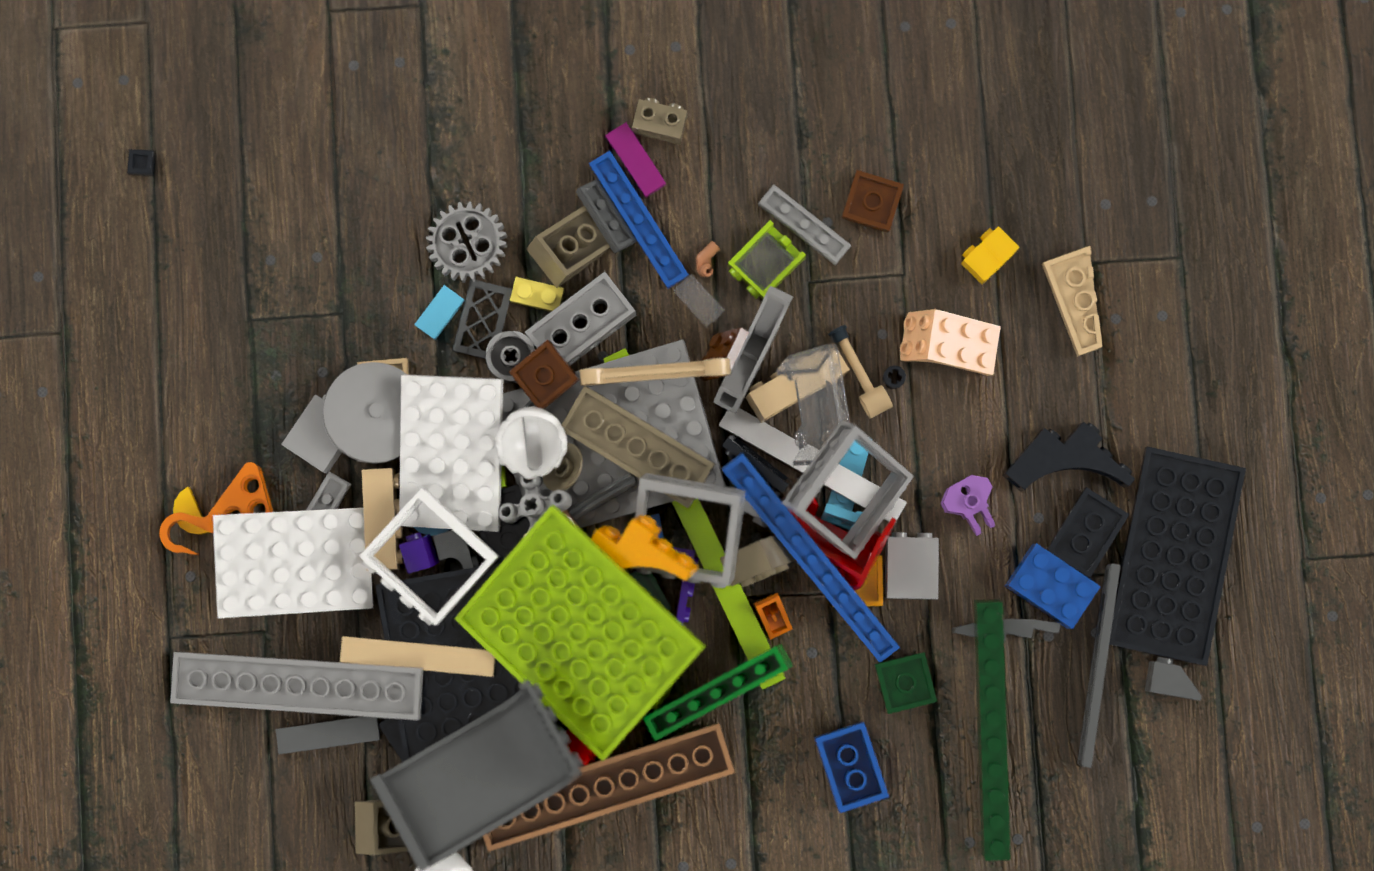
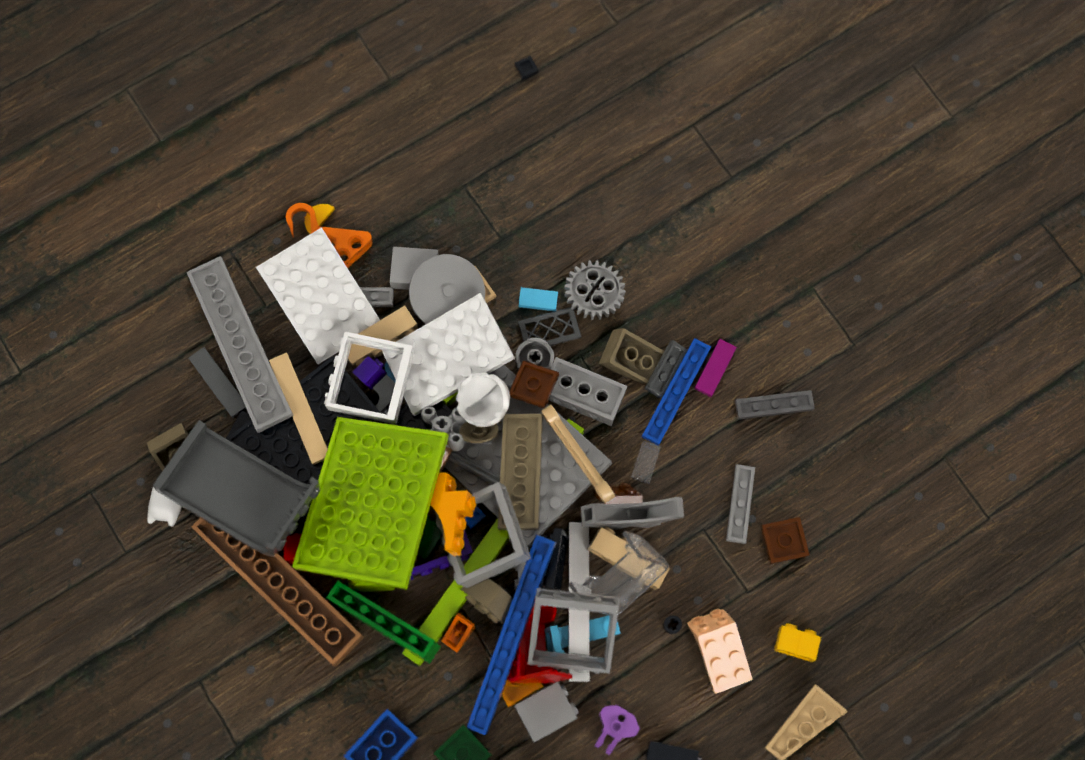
camera: 55 degrees right, 10 degrees down
(536, 294) = (586, 353): light yellow plate -> none
(659, 120) = (751, 368): dark tan brick -> none
(703, 260) = (676, 449): nougat arm -> none
(716, 120) = (774, 404): none -> flat silver plate
(765, 261) = (700, 490): window -> none
(874, 399) = (649, 618): tan piece -> none

